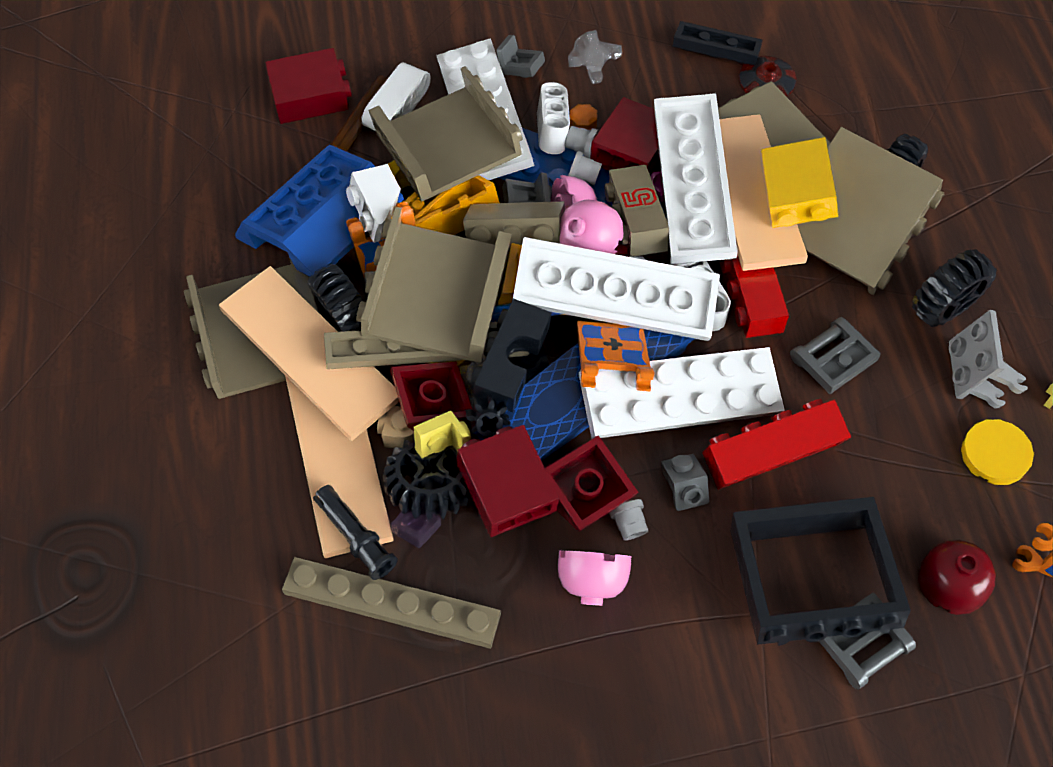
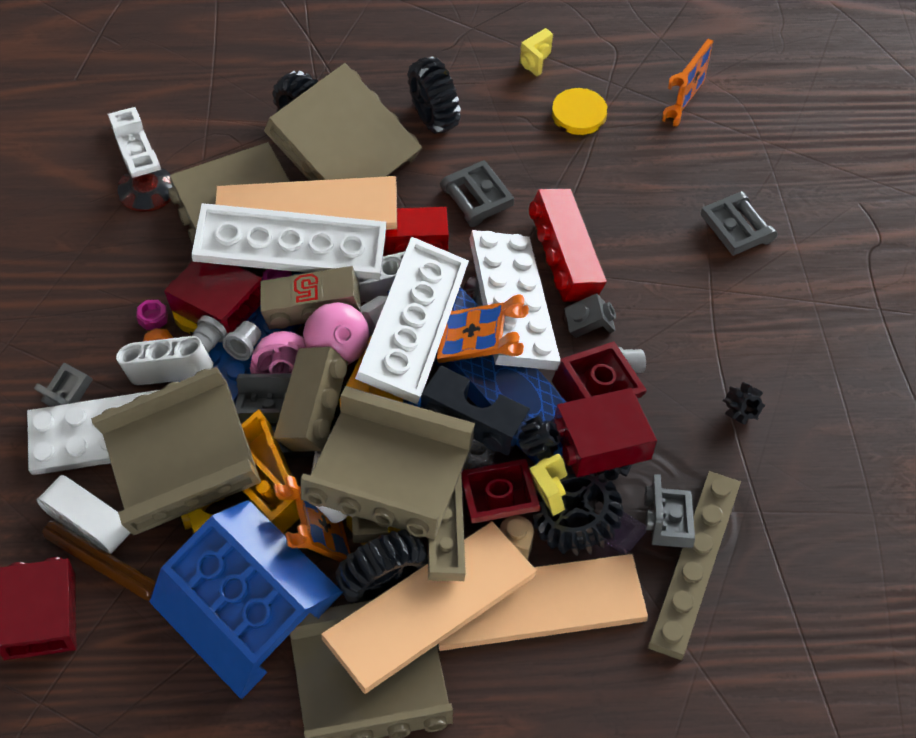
camera: 85 degrees left, 5 degrees down
(363, 542) = (645, 572): black pin -> none
(374, 196) = (272, 509): white slope -> none
(434, 564) = (669, 515): none -> dark grey bracket
(590, 643) = (744, 403): none -> black gear
(593, 54) = (80, 318): clear rock -> none
(593, 574) = (681, 390): bright pink cylinder -> none
(608, 103) = (152, 314): none -> dark pink tile
(717, 43) = (94, 215): black plate -> none
(799, 182) = (325, 160): yellow brick -> none
(812, 58) = (133, 142): none -> white slope
(816, 519) = (689, 279): black window -> none
(957, 576) = (687, 156): dark red cylinder -> none
(978, 356) = (502, 95): light grey plate -> none

